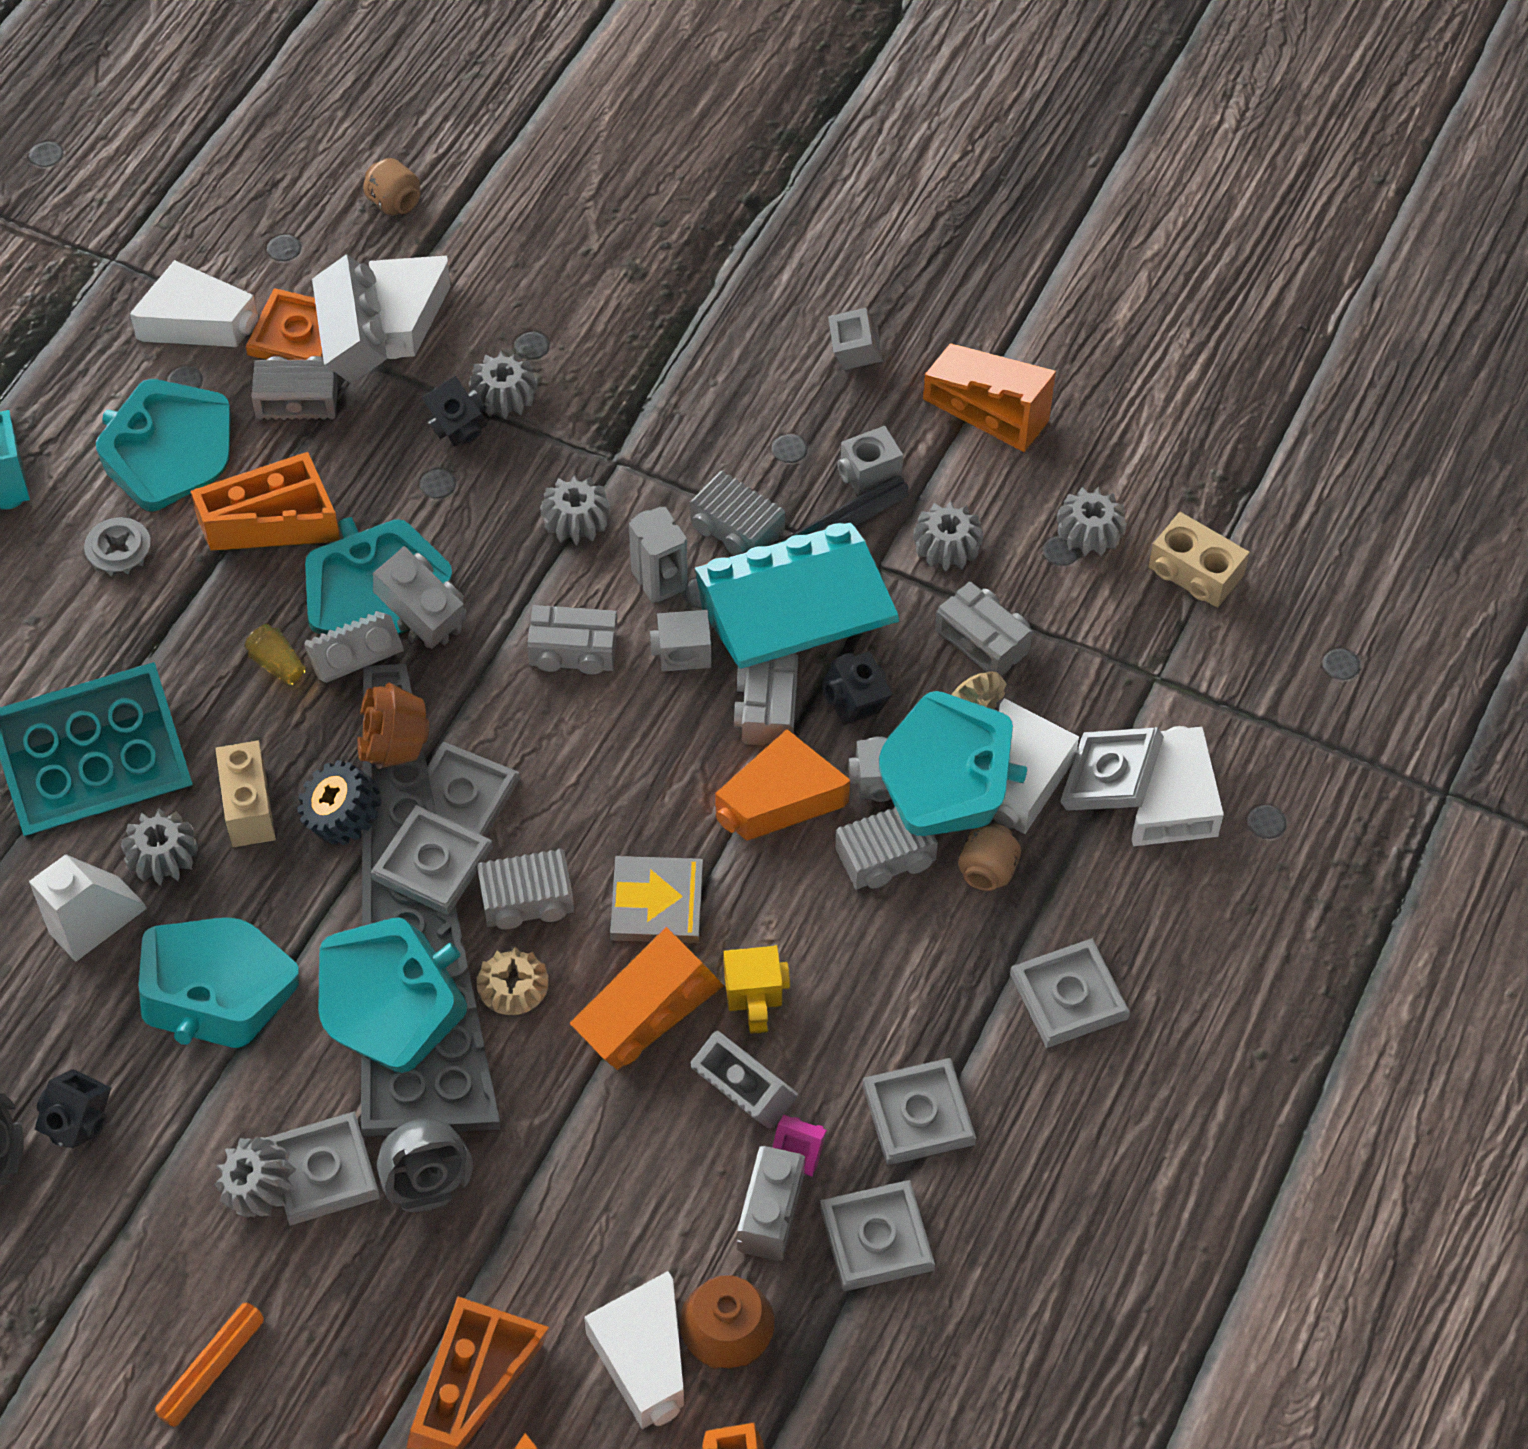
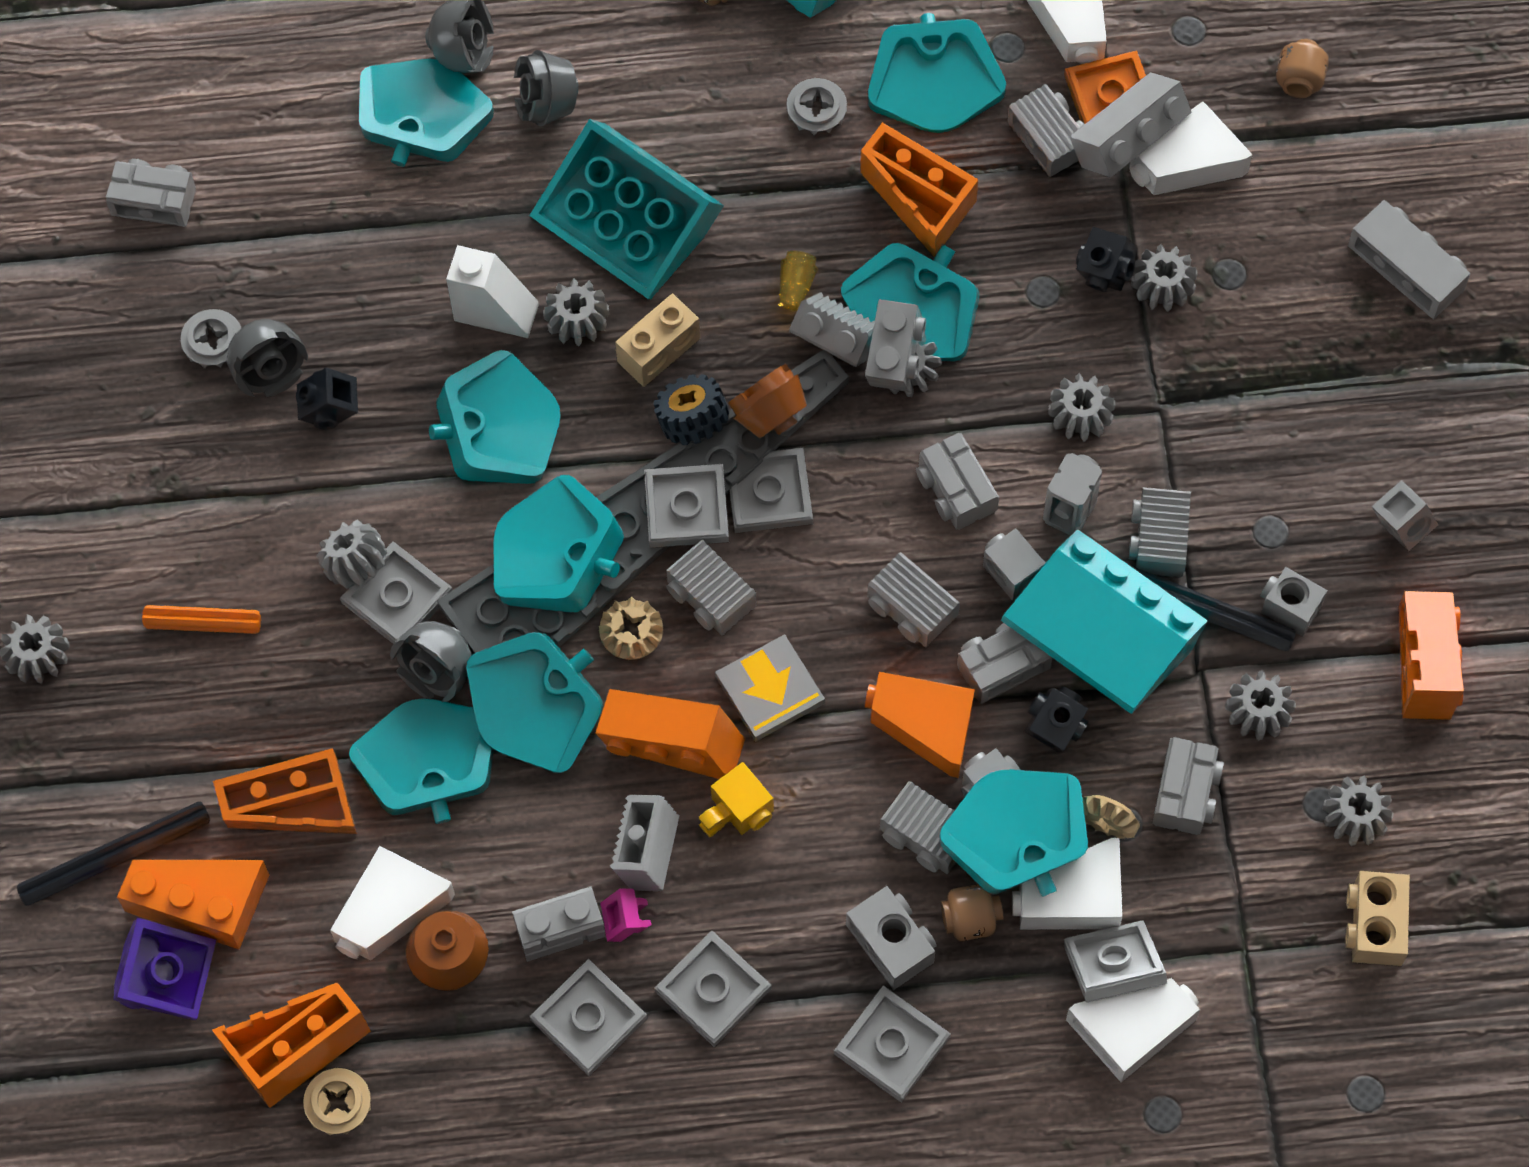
camera: 60 degrees right, 10 degrees up
(511, 1232) = (424, 758): none -> teal animal
(530, 1098) = (533, 700): none -> teal animal
(625, 213) = (1409, 259): none -> light grey brick
(660, 736) = (912, 600): none -> light grey brick
(955, 948) = (897, 960): none -> light grey brick

